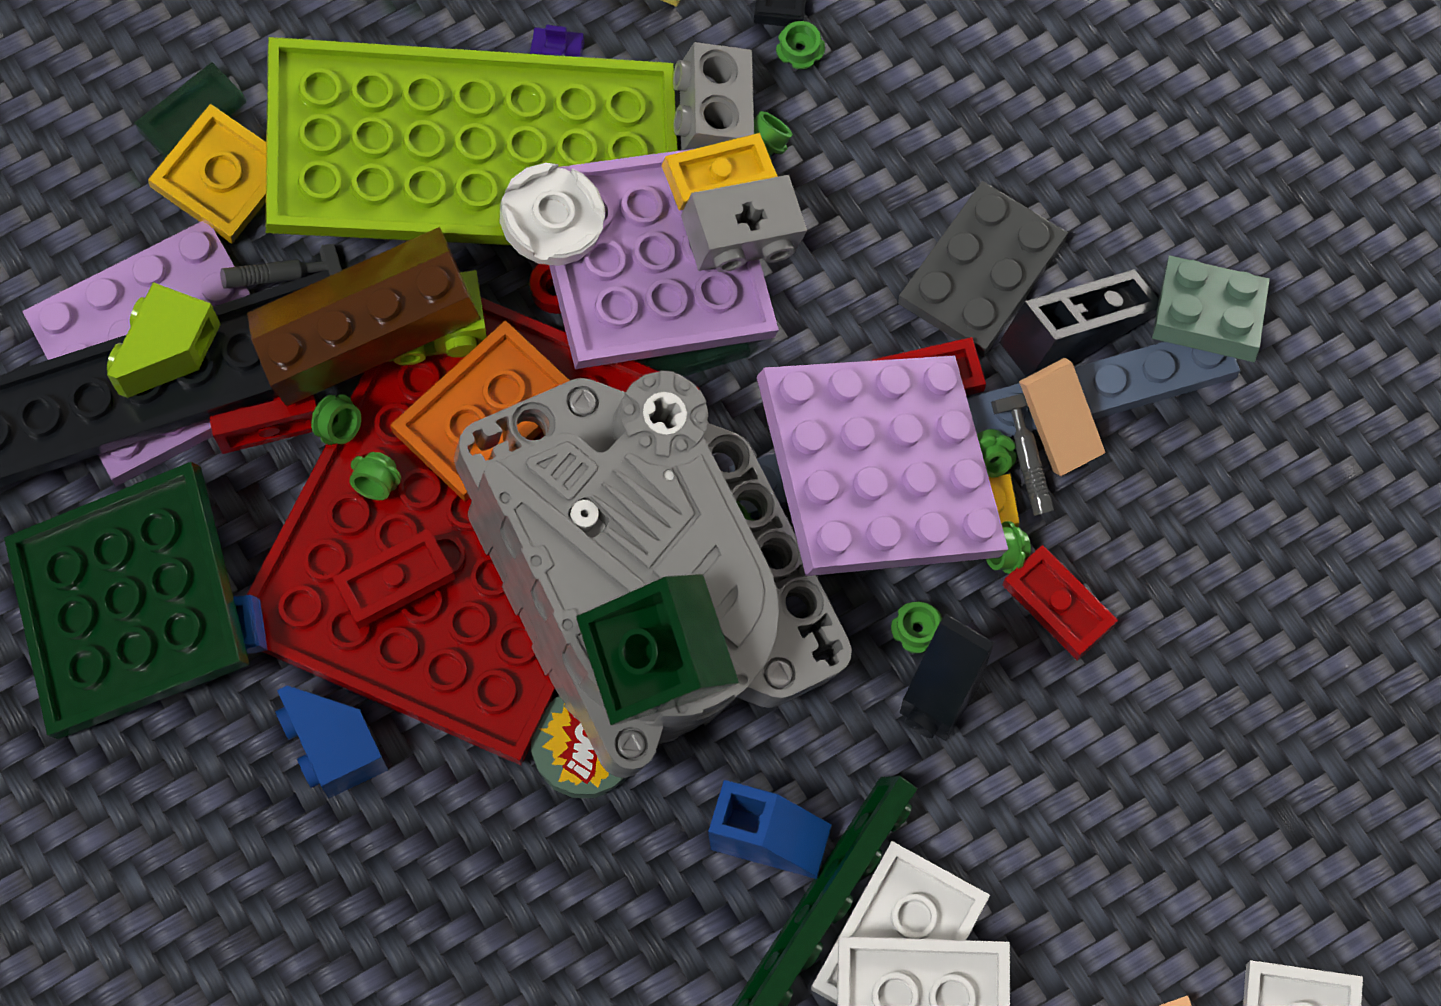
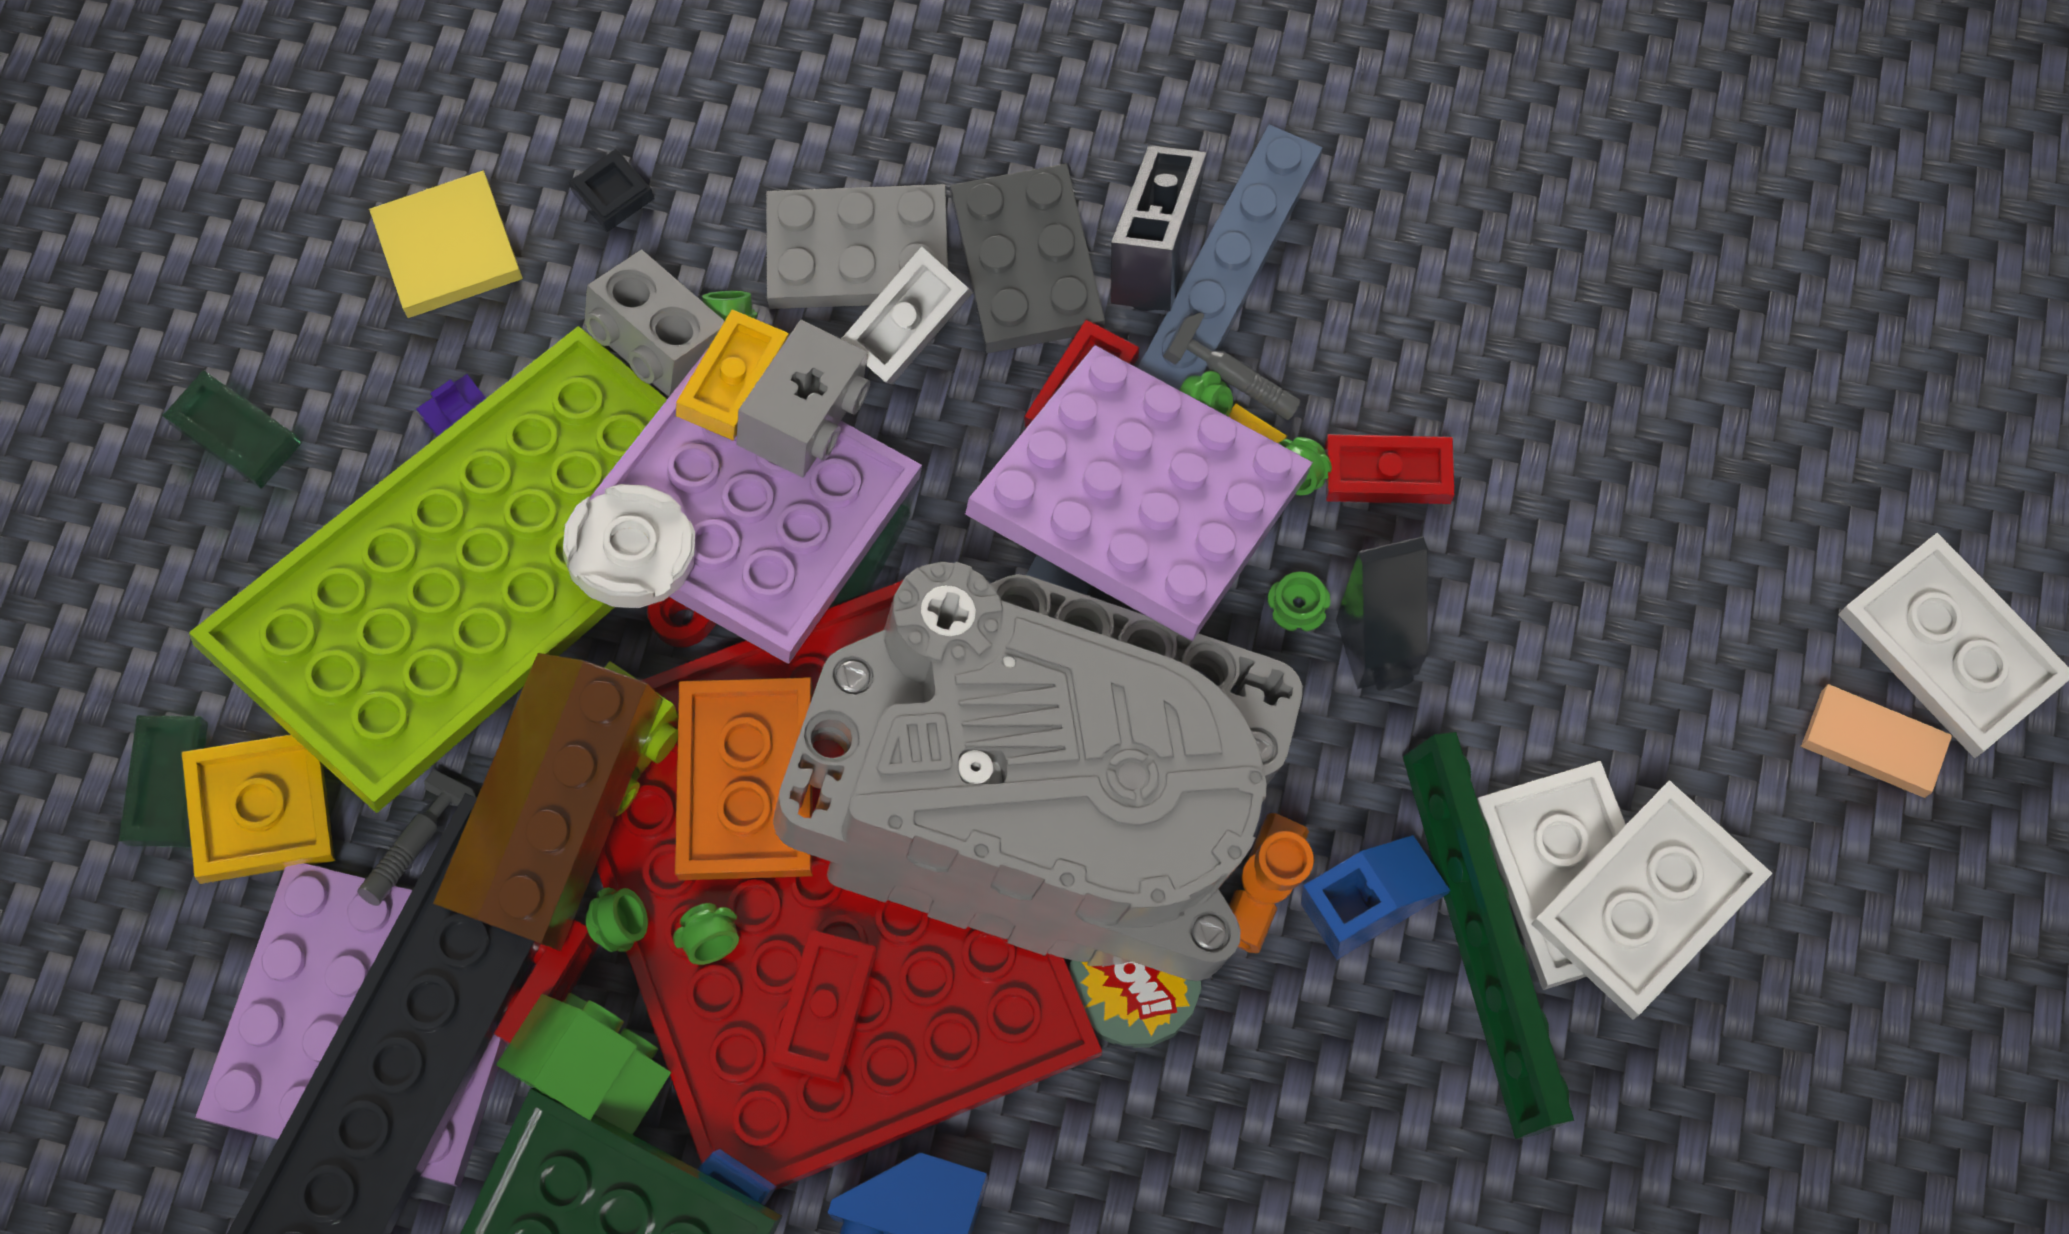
camera: 45 degrees left, 0 degrees up
(164, 341) = (384, 1004): lime slope -> none
(232, 475) = (583, 1062): none -> bright green brick
(657, 648) = (1171, 822): dark green slope -> none
(716, 759) = (1274, 867): none -> orange bar
(800, 33) = (671, 198): bright green plate -> none
(862, 233) = (907, 315): none -> white brick
(889, 167) = (848, 241): none -> light grey plate
(1062, 416) = (1232, 313): light nougat tile -> none
(1211, 308) = (1249, 117): sand green plate -> none

